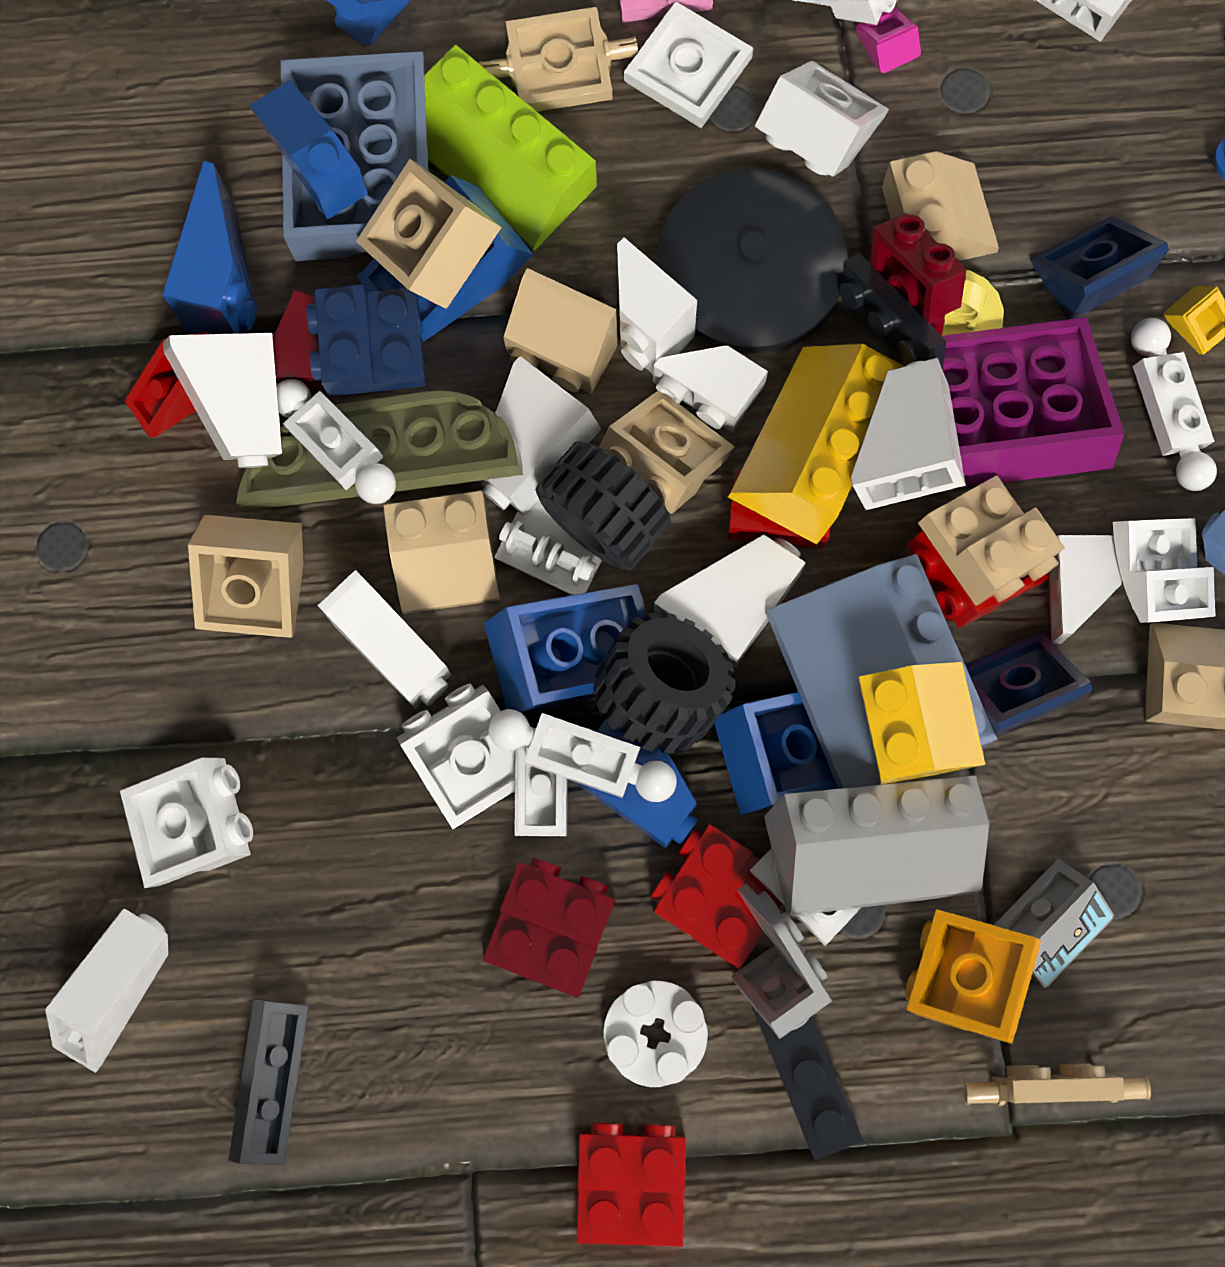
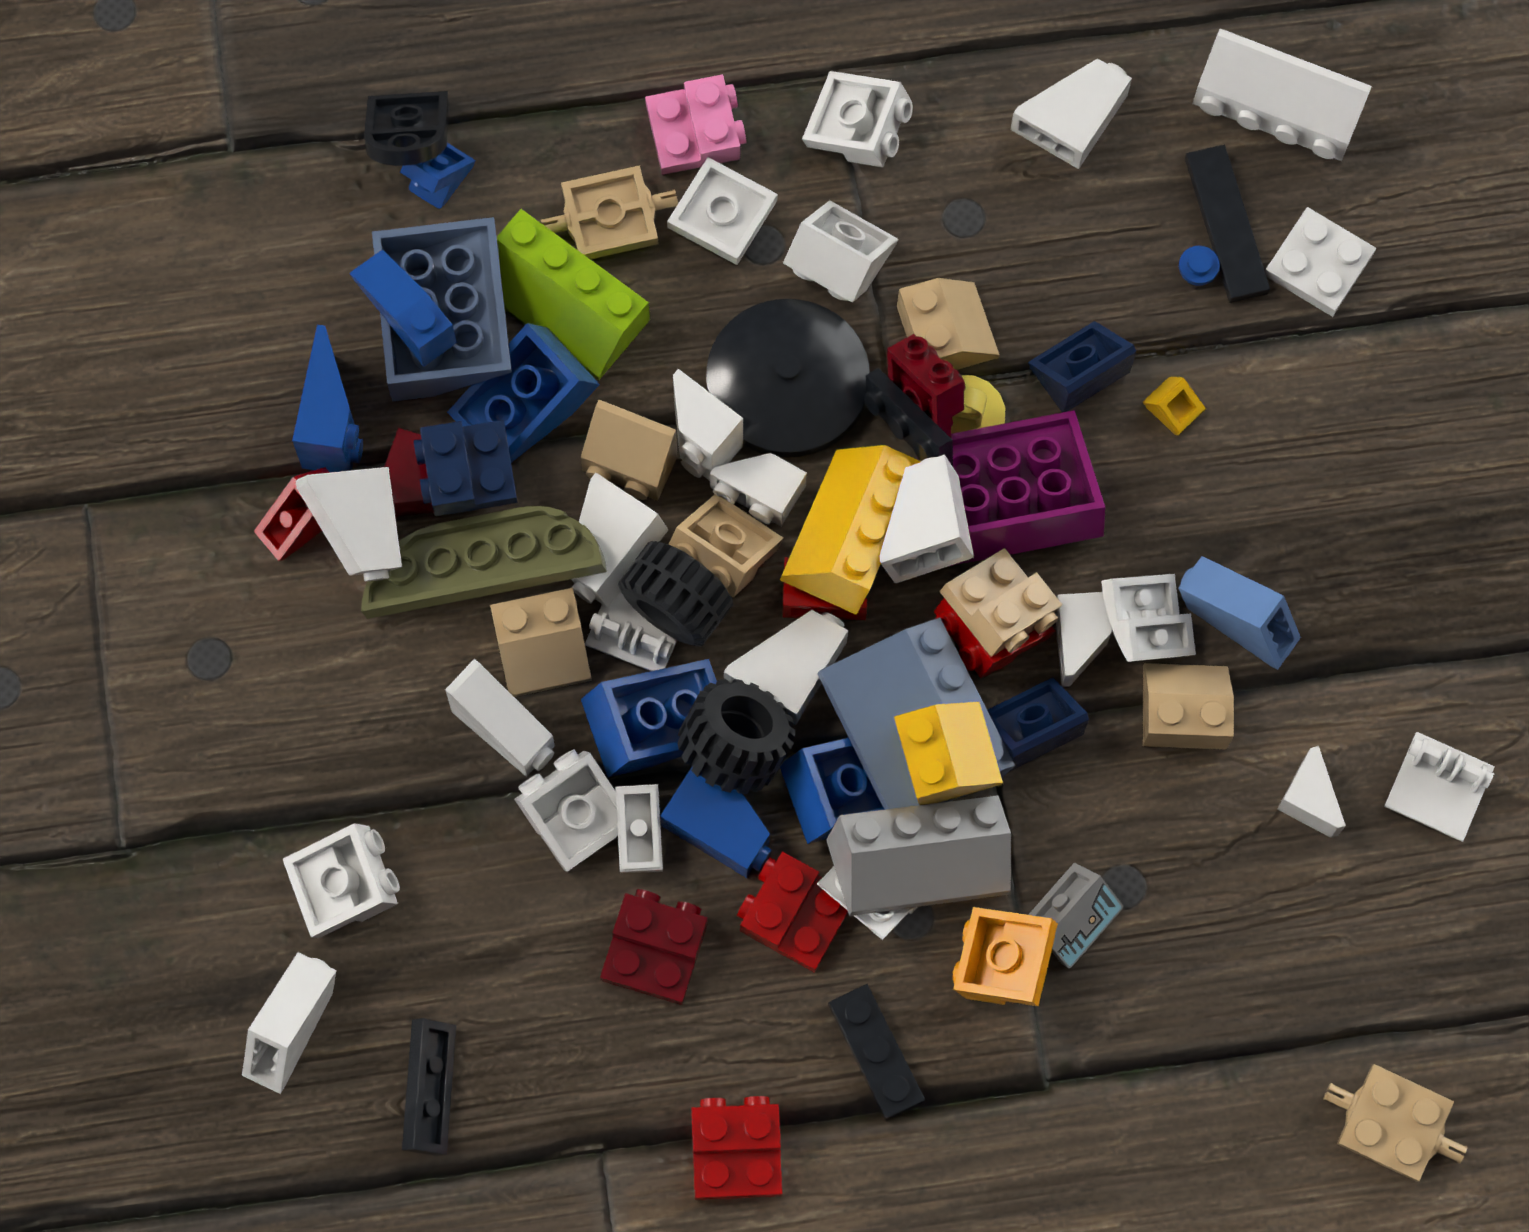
camera: 10 degrees left, 5 degrees down
(246, 575) = (375, 673): tan slope -> none
(334, 441) = (446, 554): white plate -> none
(427, 235) = (512, 376): tan slope -> none
(582, 755) = (672, 799): white plate -> none
(670, 1060) = (736, 1005): white plate -> none
(784, 979) = (855, 970): light grey bracket -> none
(891, 40) = (897, 179): dark pink slope -> none
(1072, 1084) = (1060, 1040): tan plate -> none
(1173, 404) = (1152, 479): white plate -> none

